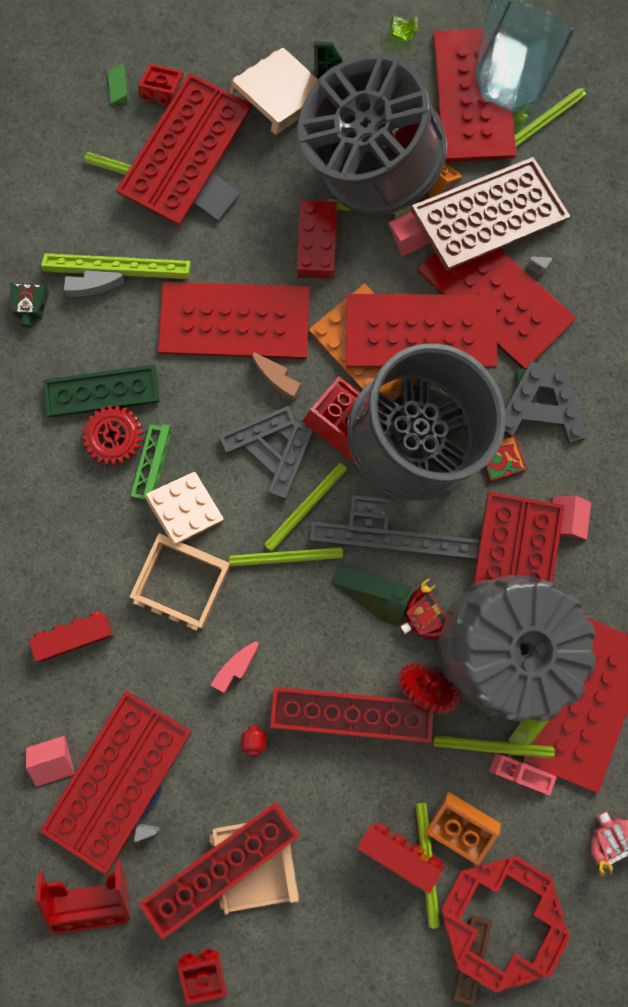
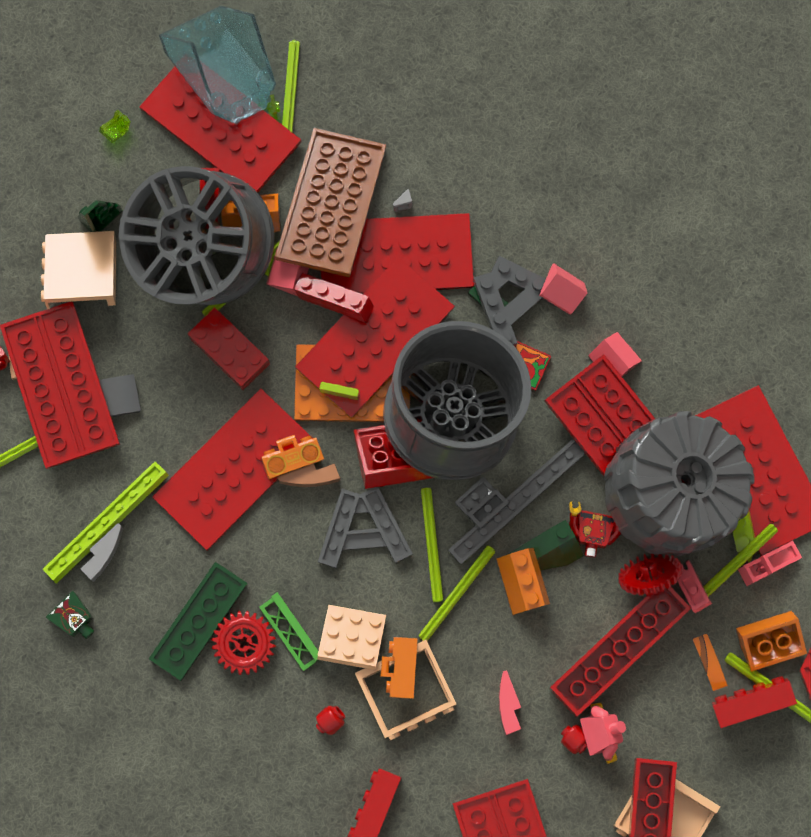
camera: 50 degrees left, 0 degrees up
(110, 546) = (330, 720): none -> red head
(185, 570) = (404, 659): none -> orange piece
(270, 347) = (283, 461): none -> orange piece
(274, 757) = (602, 732): none -> coral torso
(338, 596) = (523, 581): none -> orange slope
(356, 338) = (339, 390): none -> lime tile
(404, 794) = (710, 662): none -> orange sticker
(422, 275) = (333, 297): none -> brick
(448, 730) = (693, 588): none -> coral hinge
(584, 433) = (563, 289): none -> coral slope

